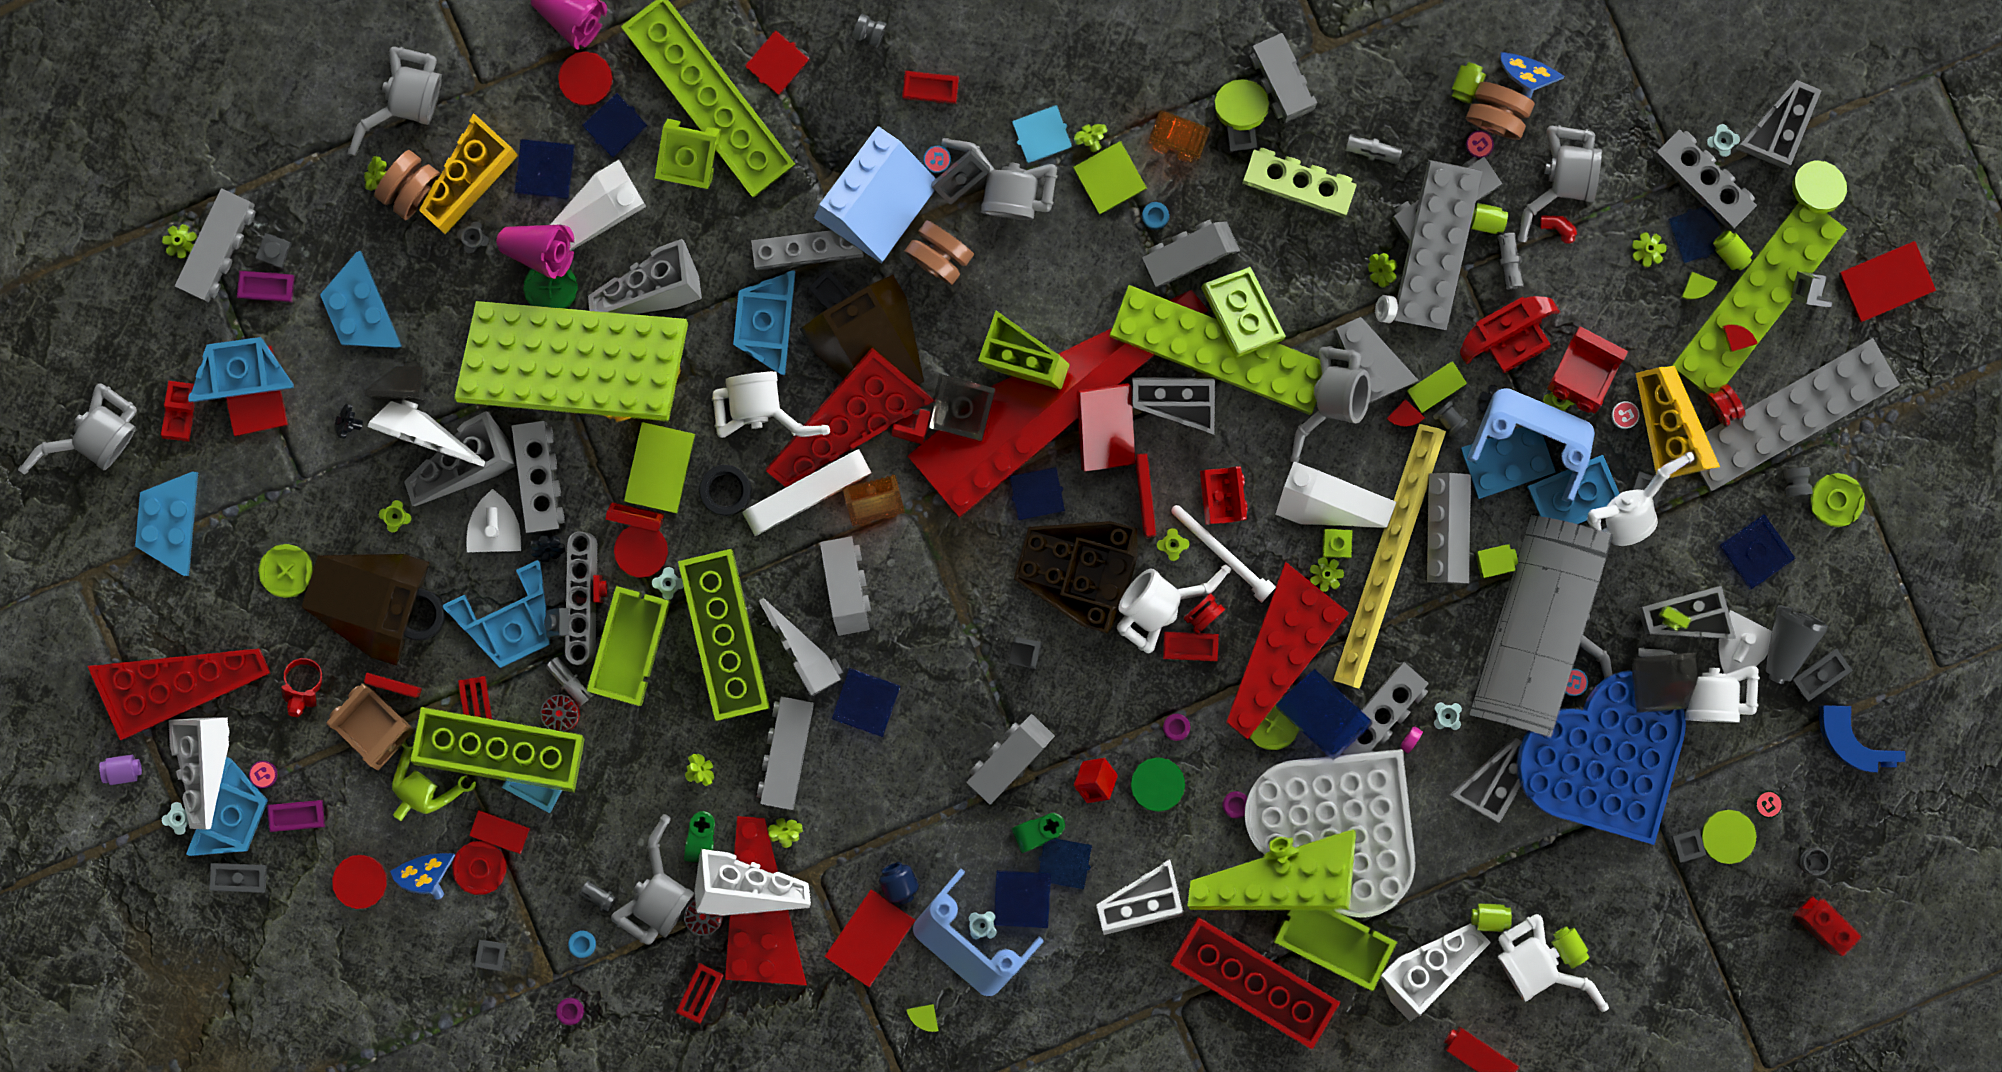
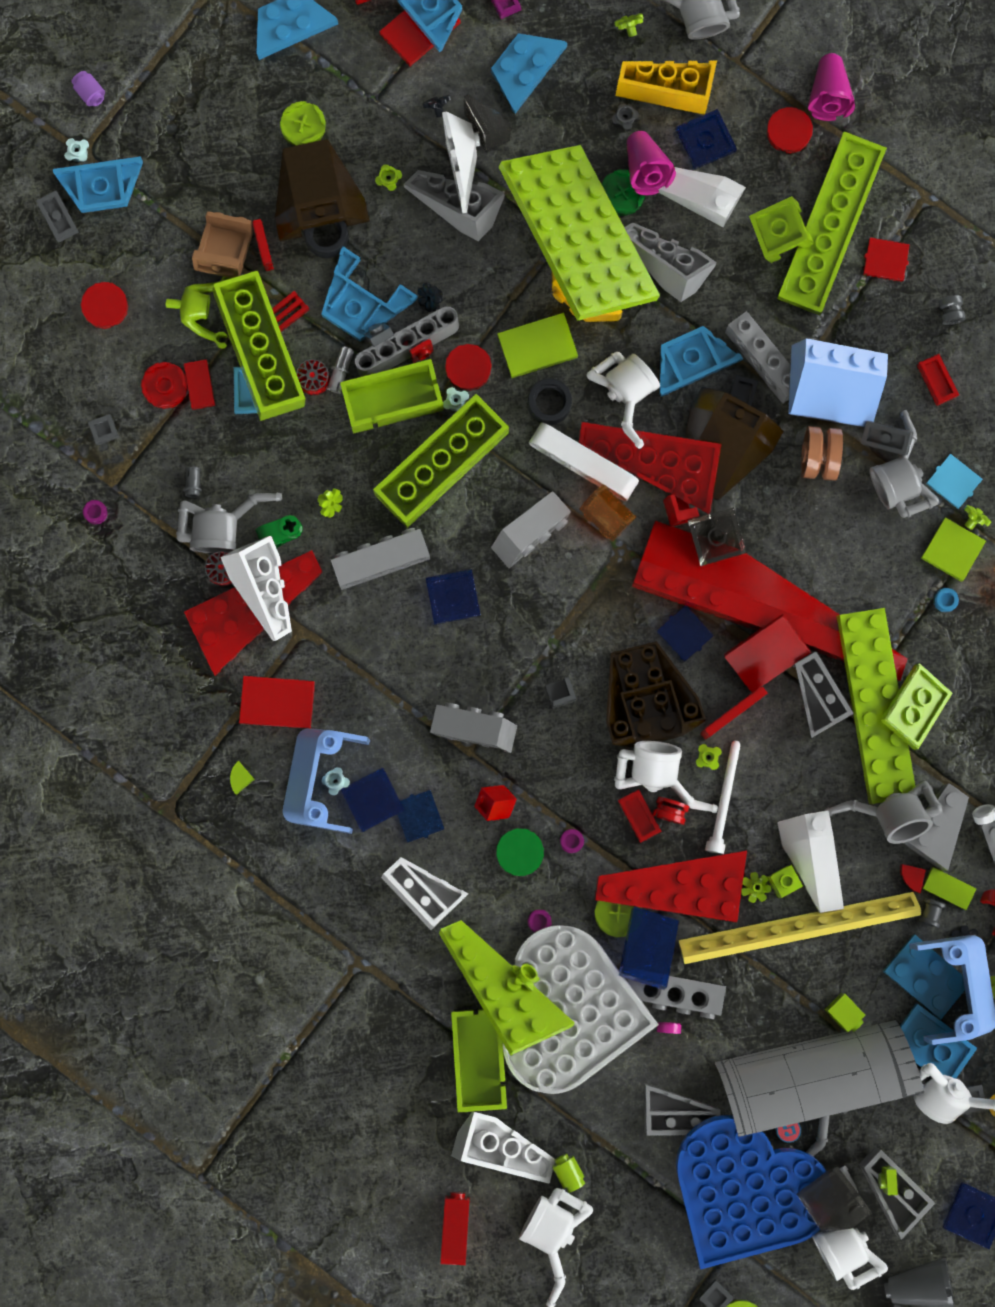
camera: 55 degrees right, 5 degrees down
(159, 689) = (164, 84): red wing -> none
(201, 755) = (136, 137): white wedge -> none
(263, 774) = (144, 192): coral tile -> none
(296, 816) = (127, 232): magenta tile -> none
(298, 700) = (213, 185): red piece -> none
(406, 184) = (635, 41): nougat wheel -> none
(423, 874) = (135, 345): blue shield -> none
(493, 526) = (422, 252): white shield -> none
(524, 436) = (500, 234): light grey brick -> none
(582, 944) = (150, 492): dark azure tile -> none
(615, 125) = (768, 170): clear blue piece -> none
(634, 516) = (490, 347): red tile -> none
(709, 972) = (183, 598): red tile -> none
(785, 832) = (320, 592): lime plant -> none
(809, 660) = (458, 536): light grey wedge -> none
(898, 883) = (330, 699): dark blue head -> none
(937, 159) = (888, 414): coral tile -> none
(1020, 355) = (782, 558): lime wedge -> none
(1034, 833) = (429, 779): green piece -> none
(1190, 252) = (936, 640): light grey wedge -> none
(1223, 495) = (768, 773): red bracket -> none
(1254, 982) = (411, 1016): red brick -> none
(1448, 528) = (848, 961): light grey brick -> none
(1453, 722) = (710, 1048): light aqua plate -> none
(1570, 947) = (582, 1249): lime brick -> none
(1748, 648) = (897, 1253): white shield -> none

